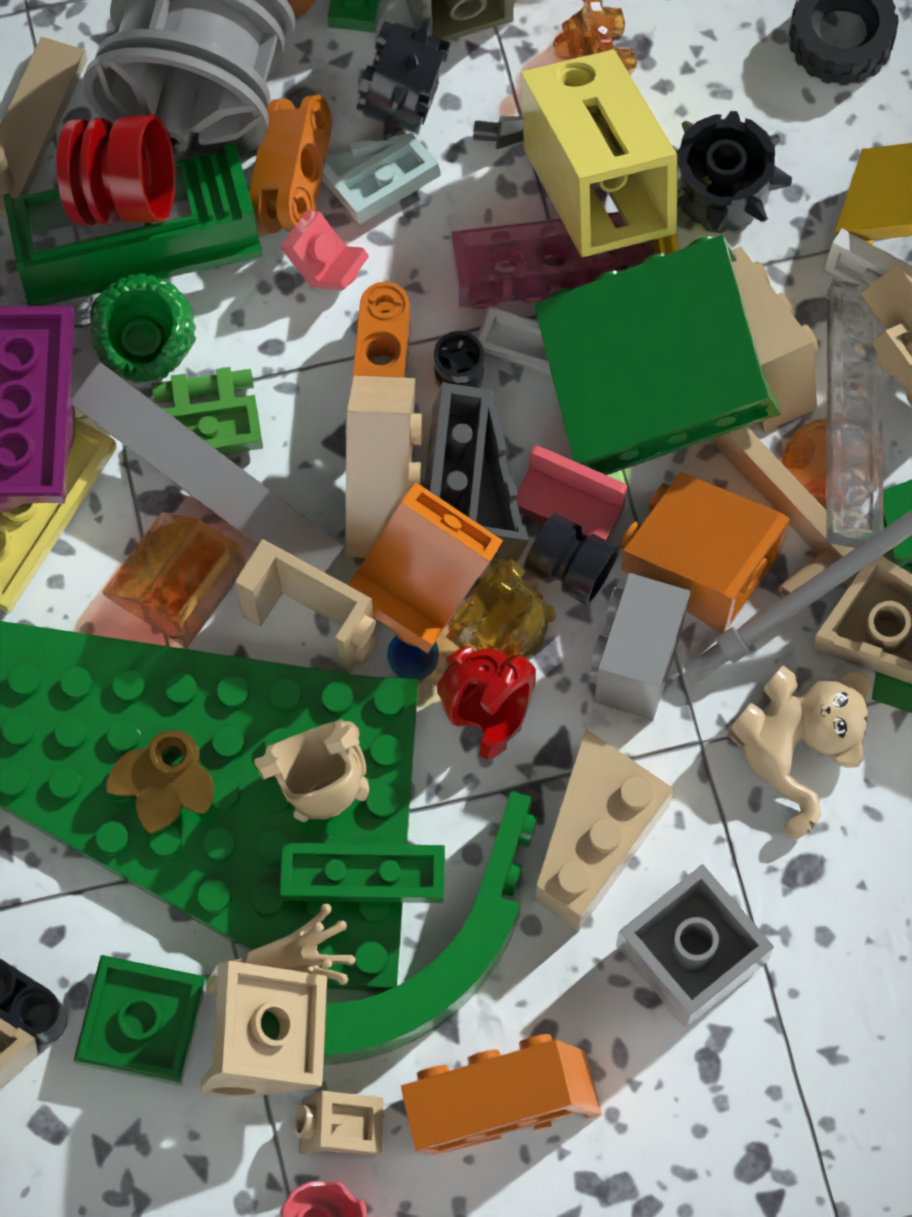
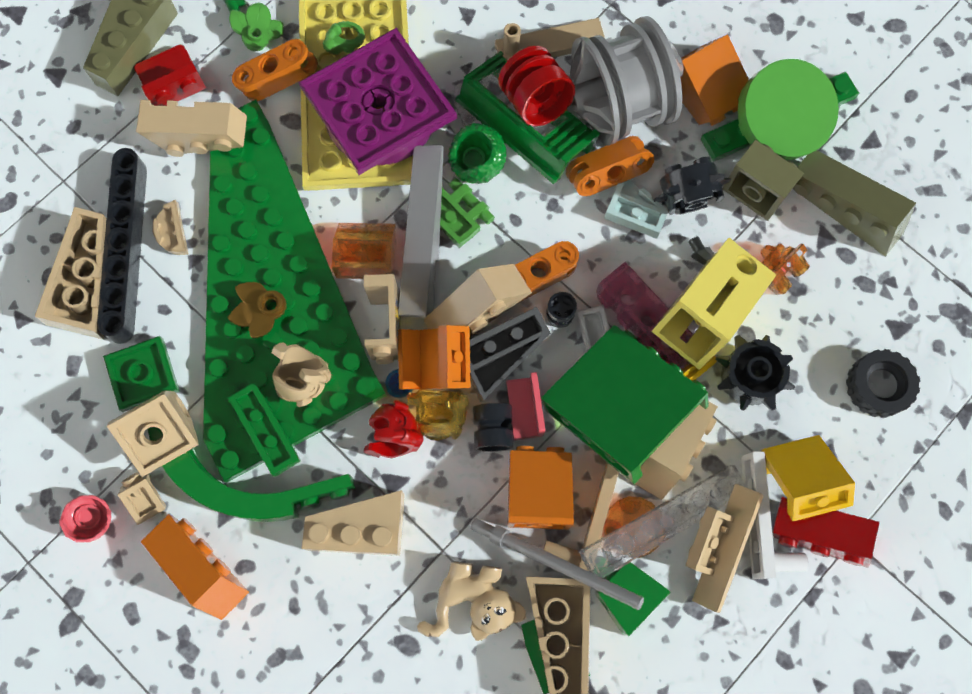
camera: 55 degrees right, 5 degrees up
(300, 951) = (205, 423): tan piece -> none
(321, 253) = (574, 210): coral bracket -> none
(640, 645) = (464, 489): light grey brick -> none
(694, 945) = (323, 615): light grey brick -> none

